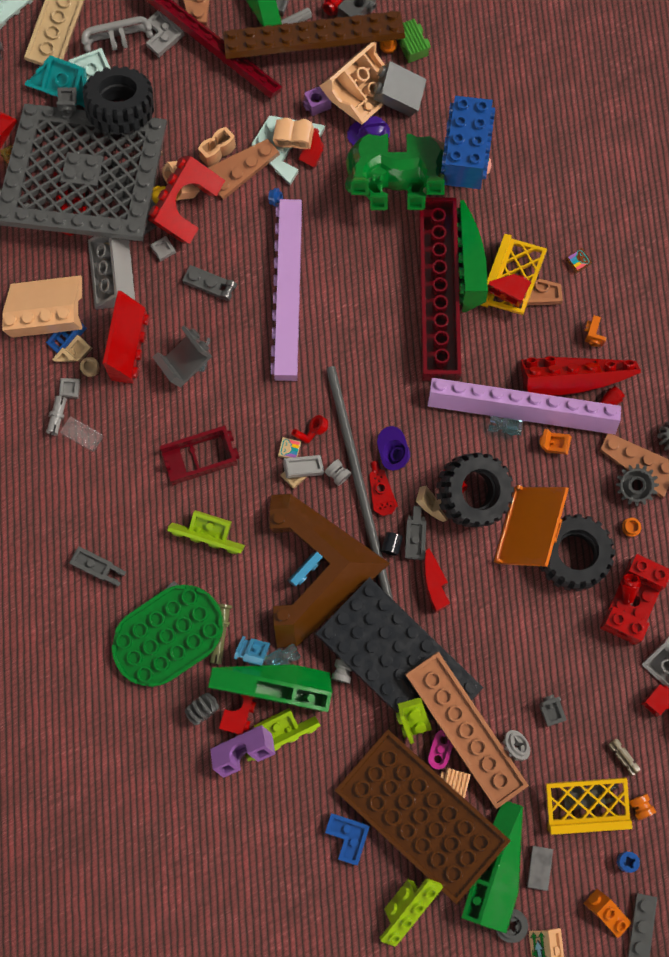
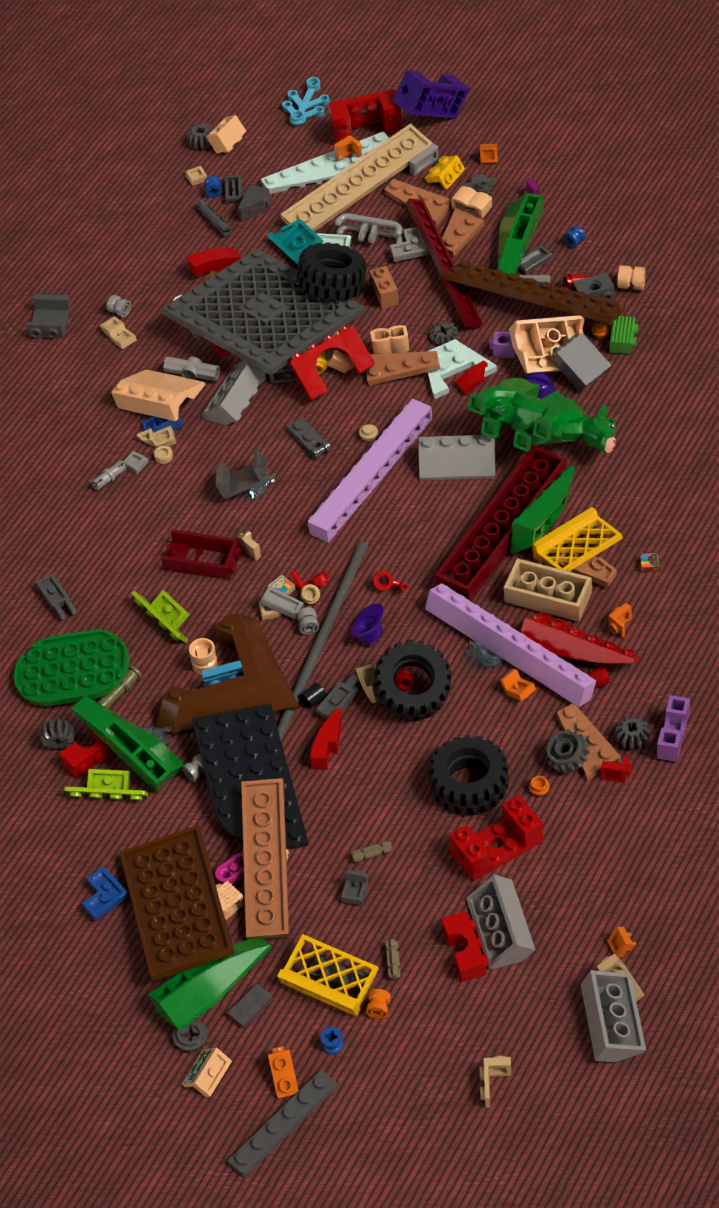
camera: 40 degrees right, 25 degrees down
(54, 263) = (191, 368): none -> light grey piece
(67, 99) = (290, 256): dark grey bracket -> none
(81, 434) = (118, 497): clear plate -> none
(125, 339) = (202, 438): red slope -> none
(163, 248) = (290, 397): light grey tile -> none
(171, 91) = (384, 287): none -> nougat brick
(227, 755) = (75, 774): medium lavender arch -> none
(236, 424) = (249, 546): none -> tan slope
(252, 651) = (130, 712): dark azure plate -> none
(255, 120) = (438, 336): none -> dark grey gear
(258, 250) = (368, 432): none -> tan plate
(274, 558) = (202, 655): none -> light nougat wheel
(275, 196) = (412, 395): blue plate -> none
(293, 133) = (460, 355): light nougat brick -> none
(320, 443) = (310, 594): none -> tan plate
(354, 239) = (456, 457): none -> light grey slope
(378, 396) = (389, 581): none -> red plate
(381, 497) = (333, 663): red piece -> none
(407, 908) = (107, 968): lime bracket -> none
(413, 717) = (225, 827): lime bracket -> none
(468, 142) = (594, 407): blue brick -> none
(510, 288) = (560, 544): red slope -> none
(516, 738) = (307, 896): light grey gear -> none
(520, 335) = (548, 589): none -> tan brick
(531, 526) = (441, 730): orange container -> none
(540, 665) = (371, 851): none -> dark tan axle
(630, 587) = (495, 820): red cone -> none

